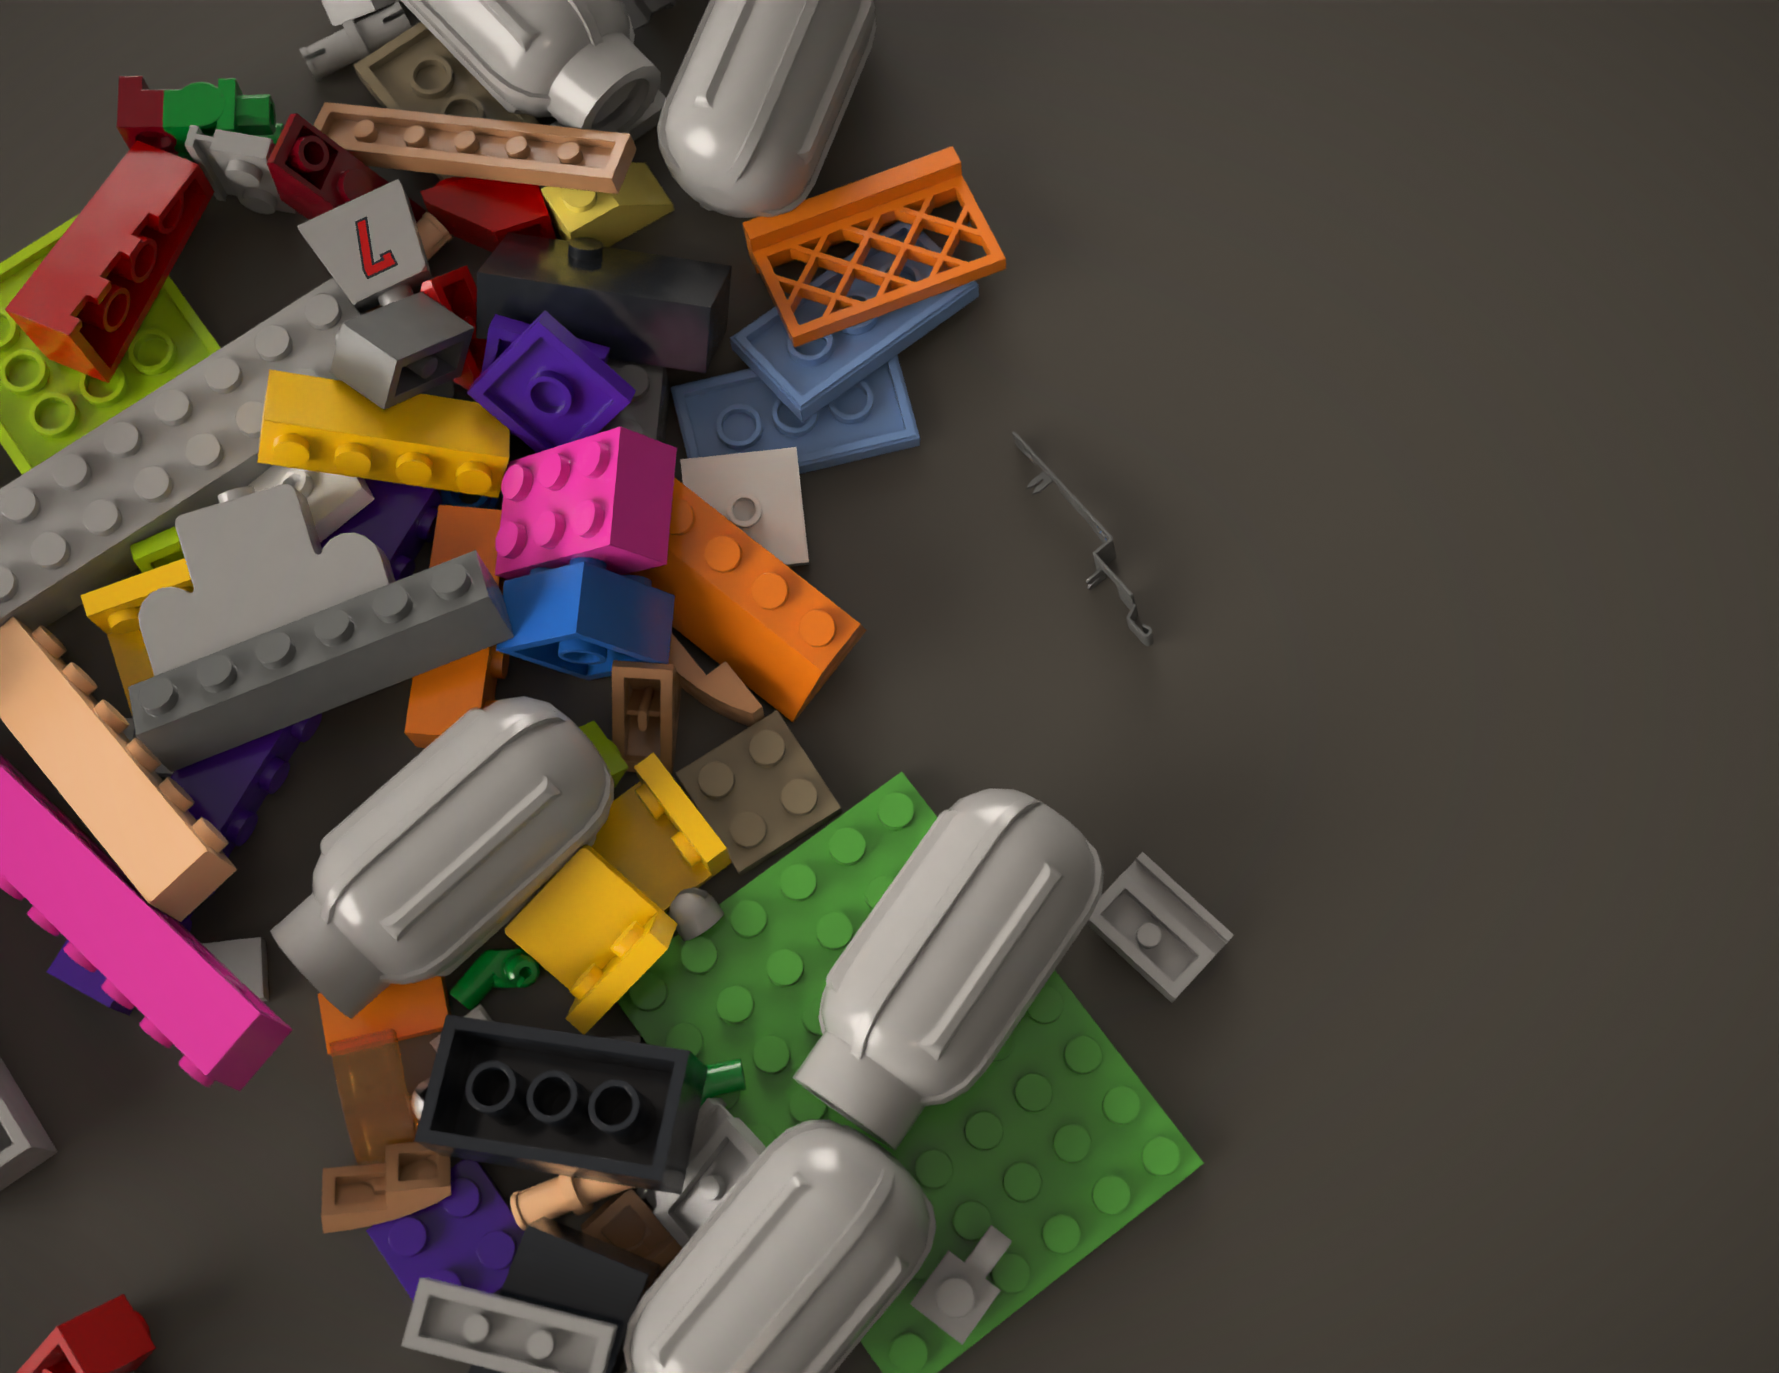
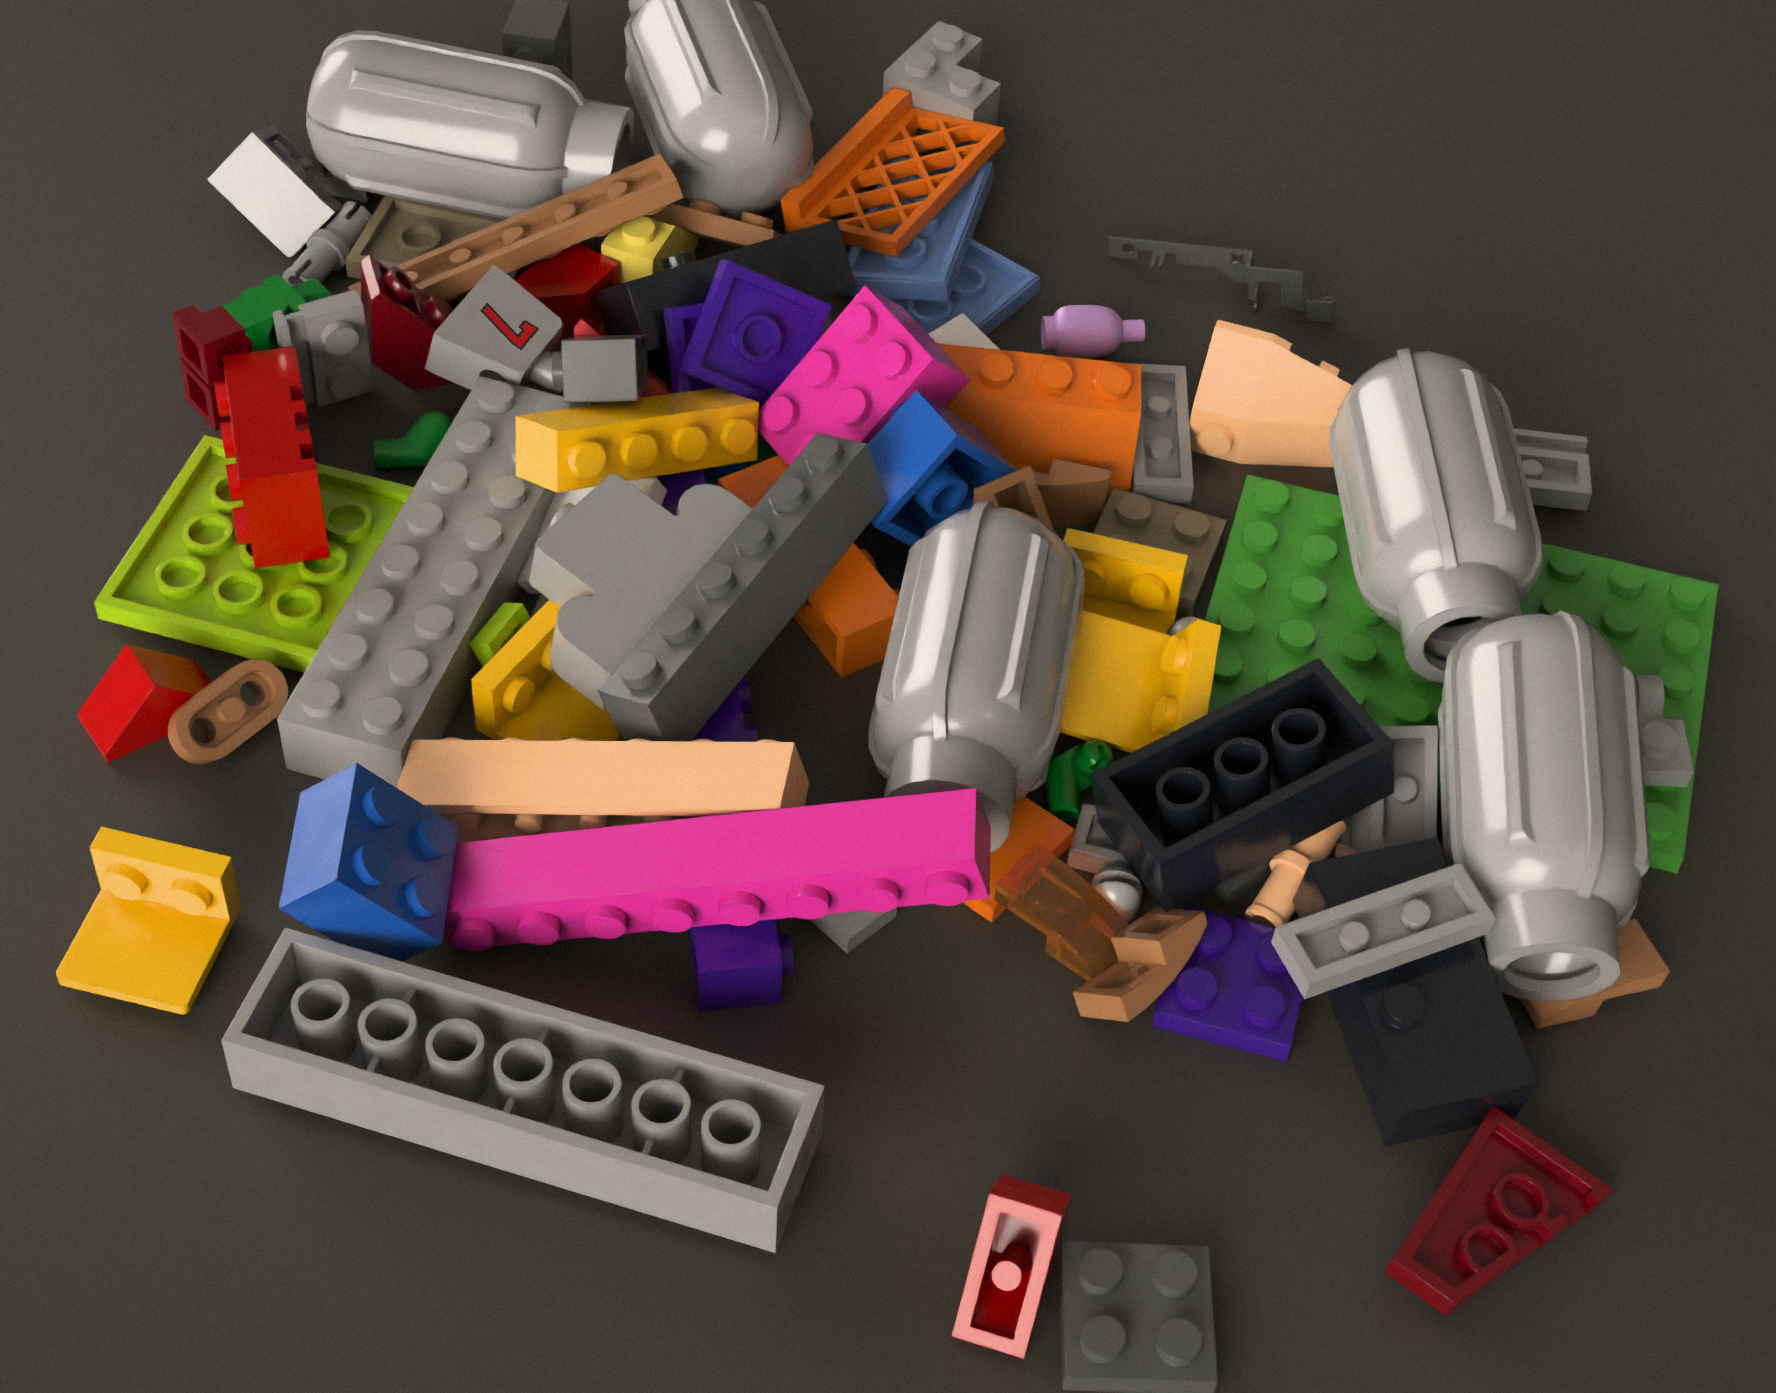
camera: 40 degrees left, 25 degrees down
(271, 298) = (416, 446): none -> green arm
(691, 227) = (706, 222): none -> medium nougat plate
(867, 677) = (1163, 443): none -> light grey plate
(901, 528) = (1088, 331): none -> lavender plant
(956, 717) = (1264, 401): none -> light nougat wedge
(1007, 157) = (946, 77): none -> light grey brick

